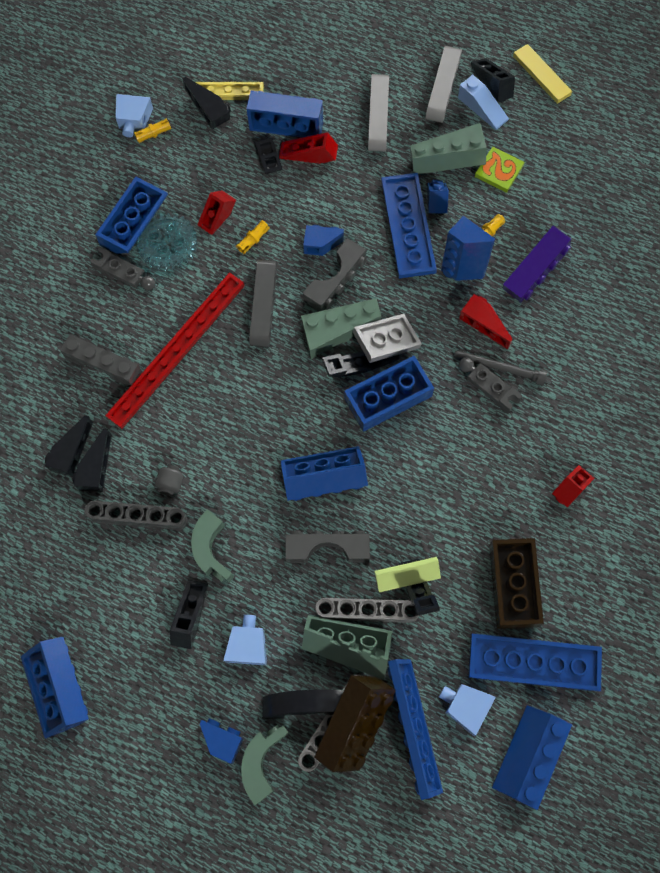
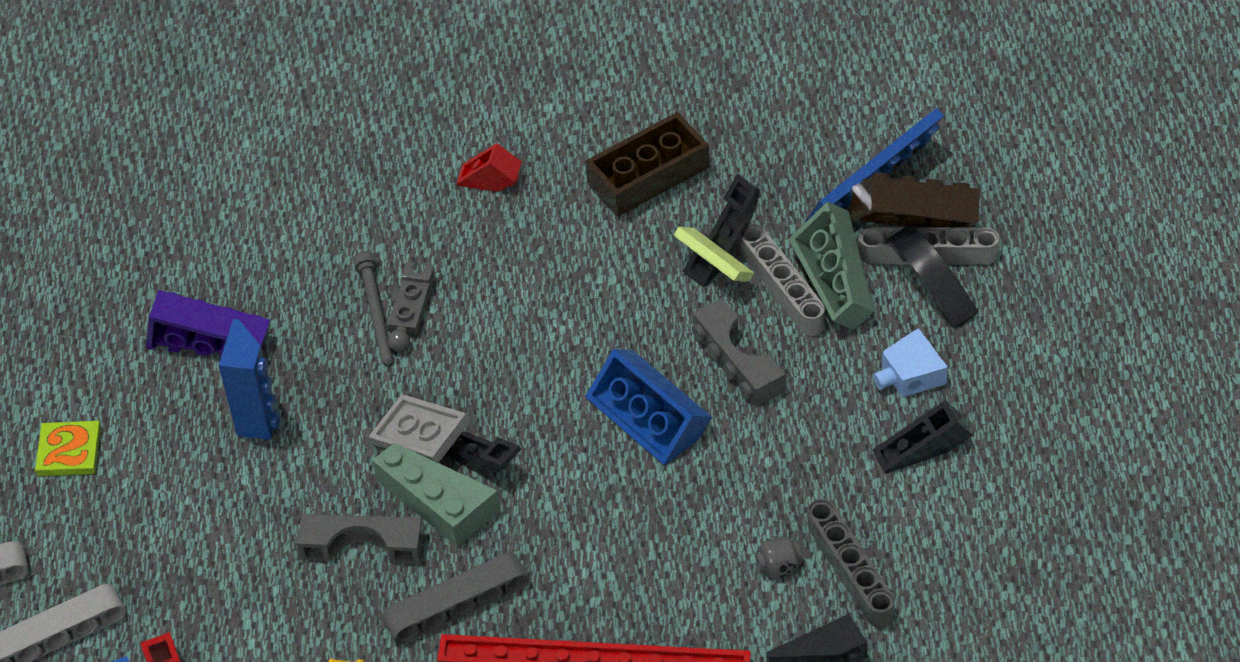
camera: 120 degrees left, 20 degrees down
(54, 686) = (1115, 520): blue slope -> none
(202, 538) = (831, 474): sand green arch -> none
(220, 742) = (1033, 328): blue slope -> none
(252, 772) = (1025, 291): sand green arch -> none
(321, 240) = (315, 584): blue slope -> none
(388, 393) = (497, 388): blue brick -> none
(408, 225) = (224, 502): blue plate -> none
(437, 197) = (160, 487): blue slope -> none
(450, 151) = (70, 498): sand green wedge -> none
(467, 706) = (815, 145): light blue torso -> none
(482, 317) = (320, 350): red slope -> none
(492, 226) = (178, 411): yellow pin -> none
(532, 757) = (823, 73): blue slope -> none
(535, 662) = (722, 117): blue plate -> none

